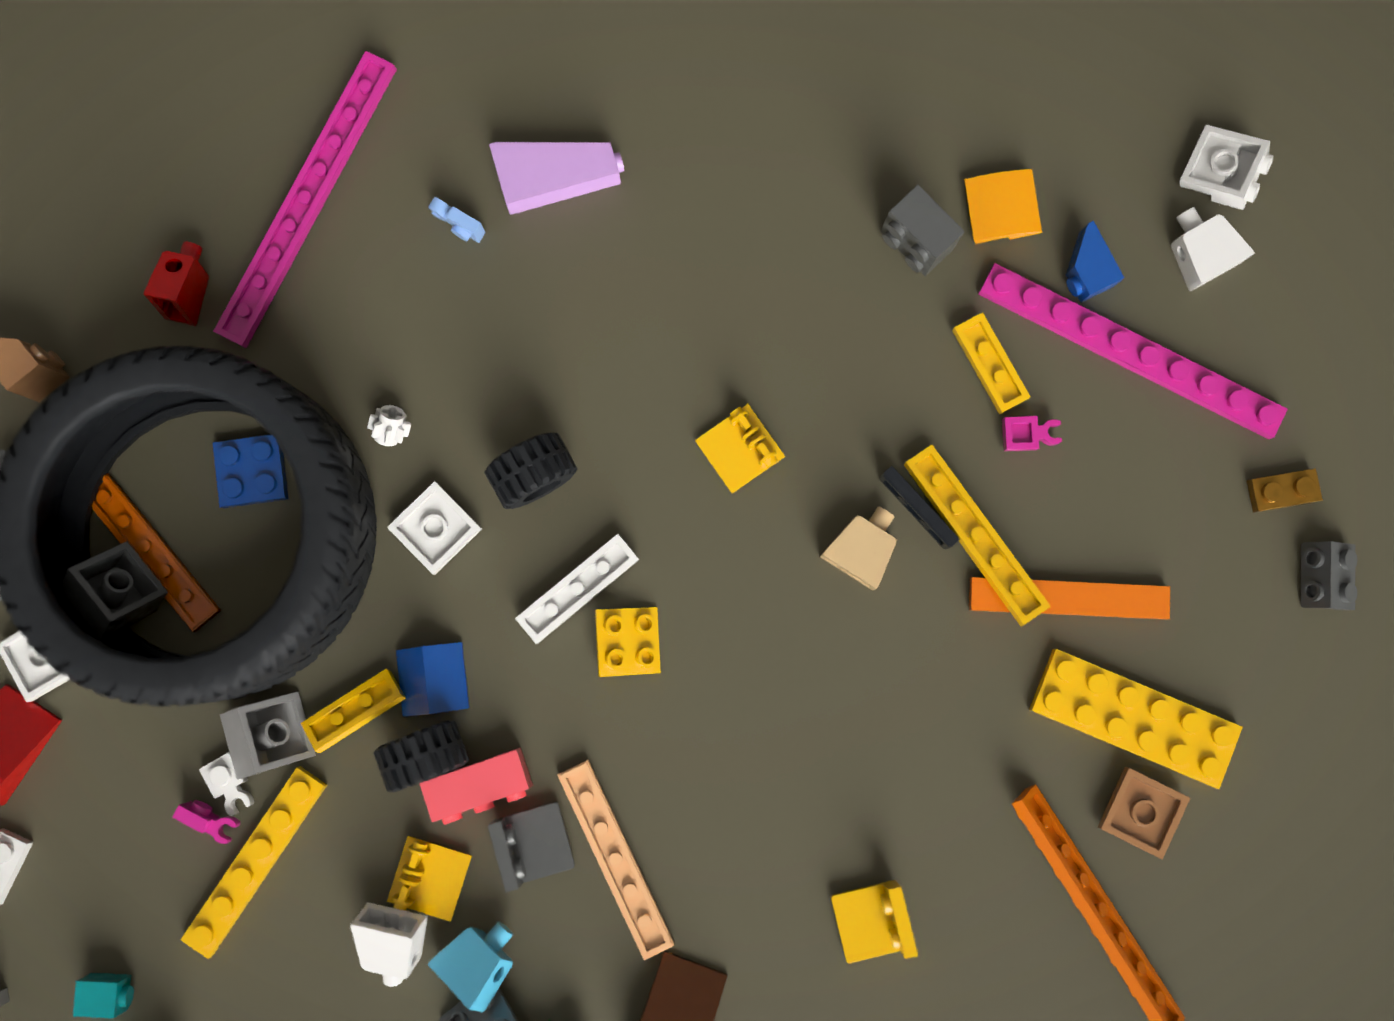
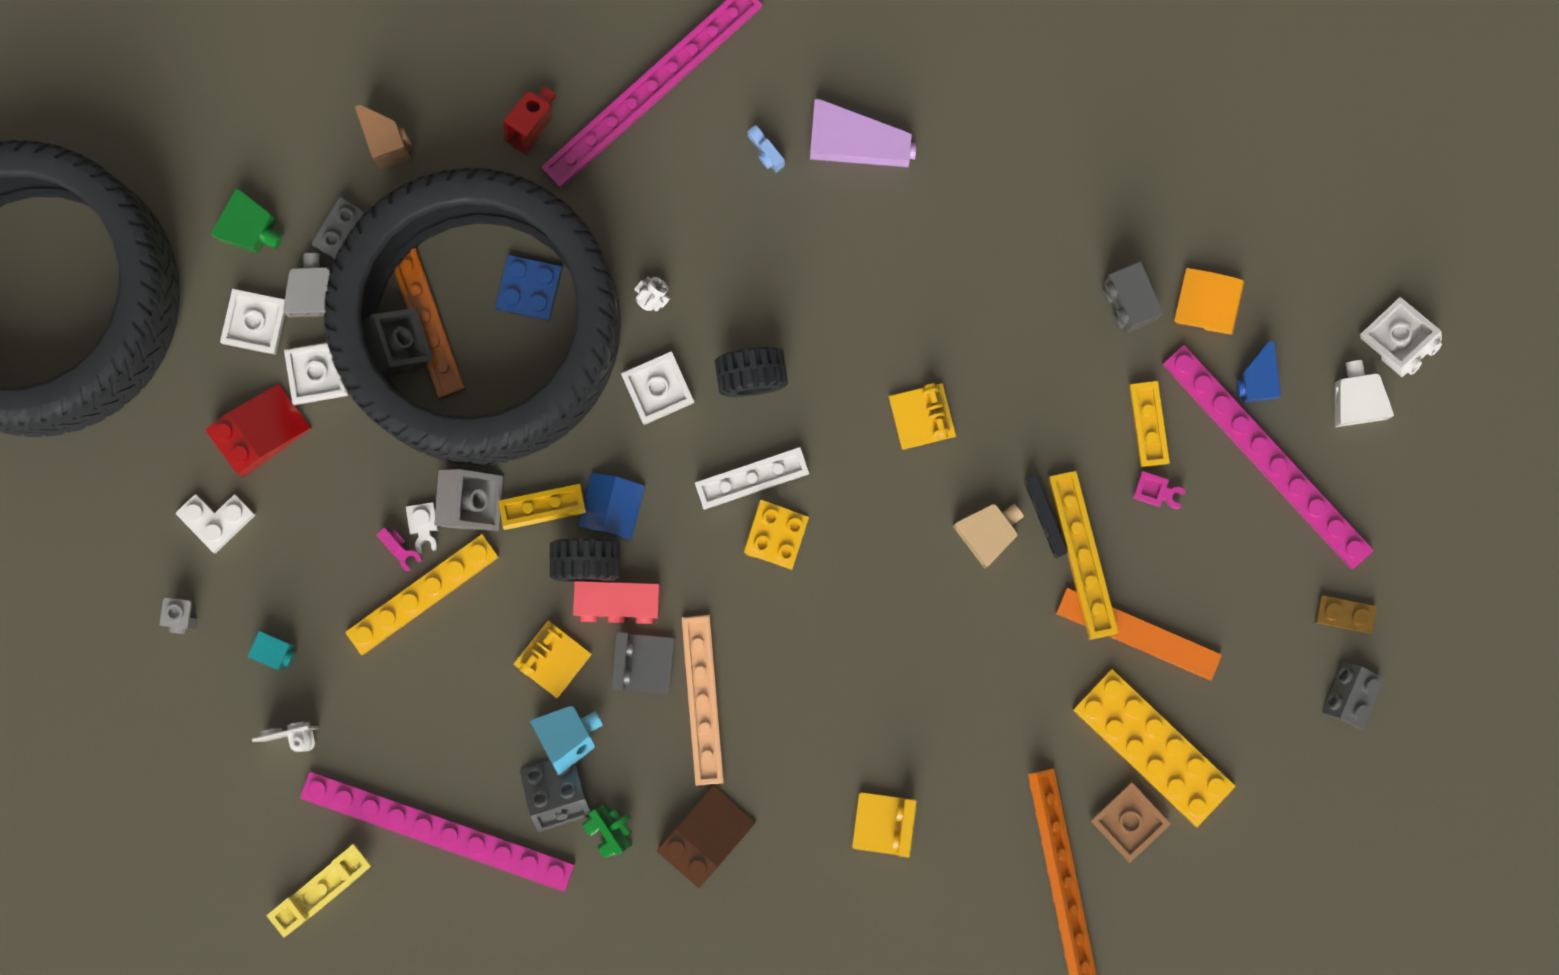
camera: 25 degrees right, 0 degrees up
(389, 941) = (507, 693): white torso -> none

